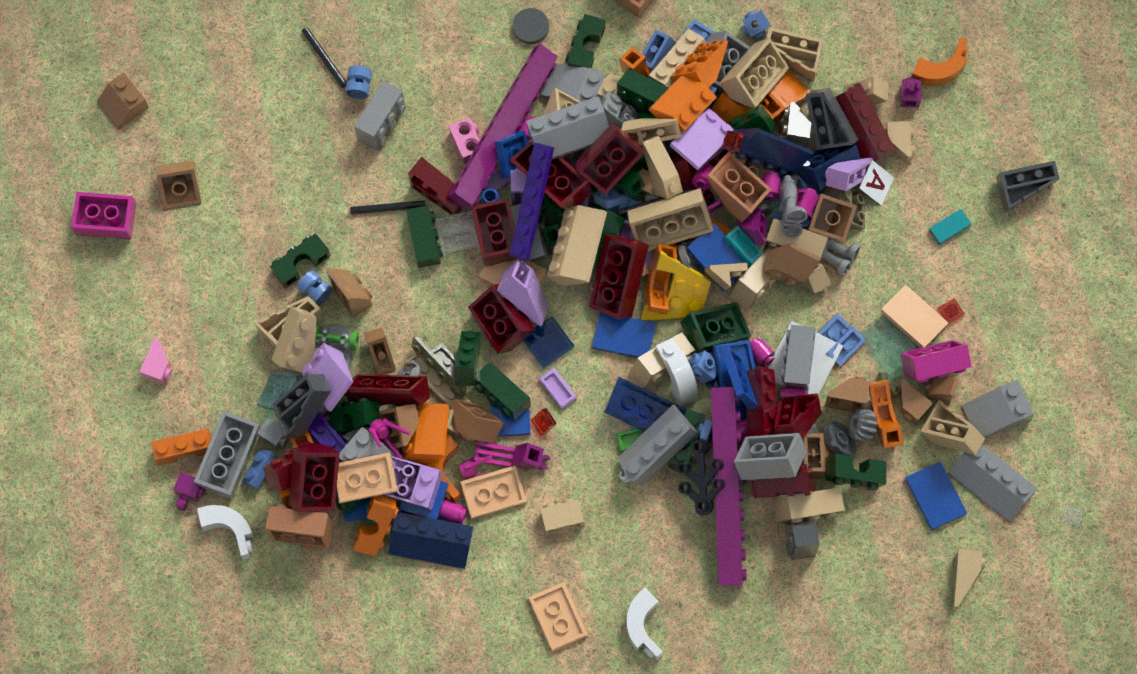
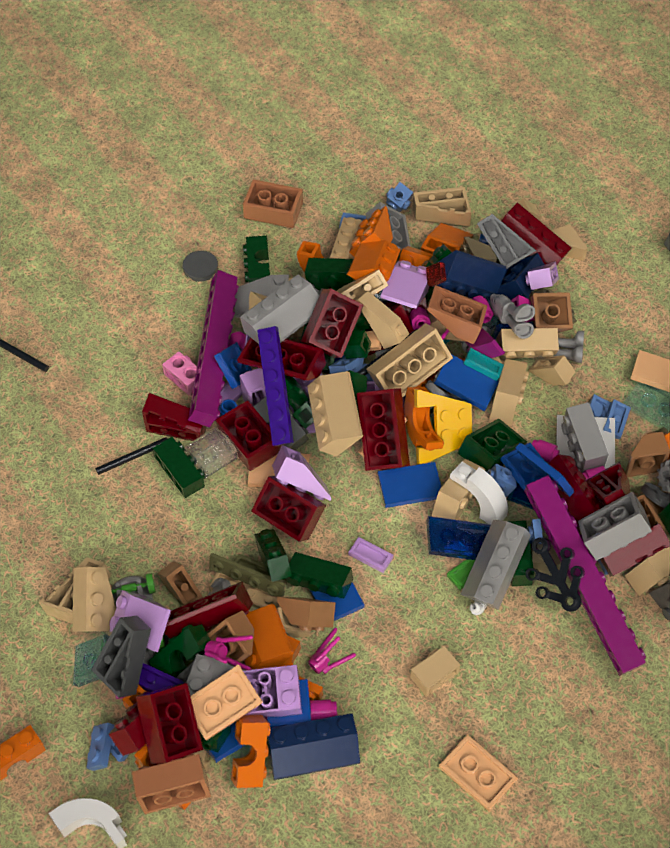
camera: 25 degrees left, 15 degrees down
(187, 490) = (31, 797): magenta brick -> none
(227, 455) = (61, 745): light grey slope -> none
(272, 434) = (102, 706): light grey brick -> none
(311, 249) = (71, 517): dark green arch -> none
(313, 287) = (86, 547): medium blue wheel -> none
(349, 291) = (125, 540): medium nougat slope -> none
(358, 83) = (59, 359): medium blue wheel -> none
(380, 115) = (93, 378): light grey brick -> none
(493, 492) = (354, 675): light nougat tile -> none
(495, 447) = (339, 630): dark pink tile -> none
(529, 457) = (375, 625): magenta brick -> none
(543, 421) = (372, 588): clear red plate -> none
(548, 342) = (341, 517): clear blue tile -> none
(639, 609) = (561, 746): white arch -> none
(657, 48) = (326, 238): medium blue slope -> none
(722, 273) = (481, 390): tan slope -> none
(755, 74) = (421, 227): tan slope -> none
(790, 264) = (536, 361): medium nougat slope -> none
(876, 182) = (568, 280): white sticker -> none
(910, 92) = (557, 205): magenta brick -> none
(942, 73) = (570, 185): orange arch -> none
(950, 227) = (648, 294): teal tile -> none

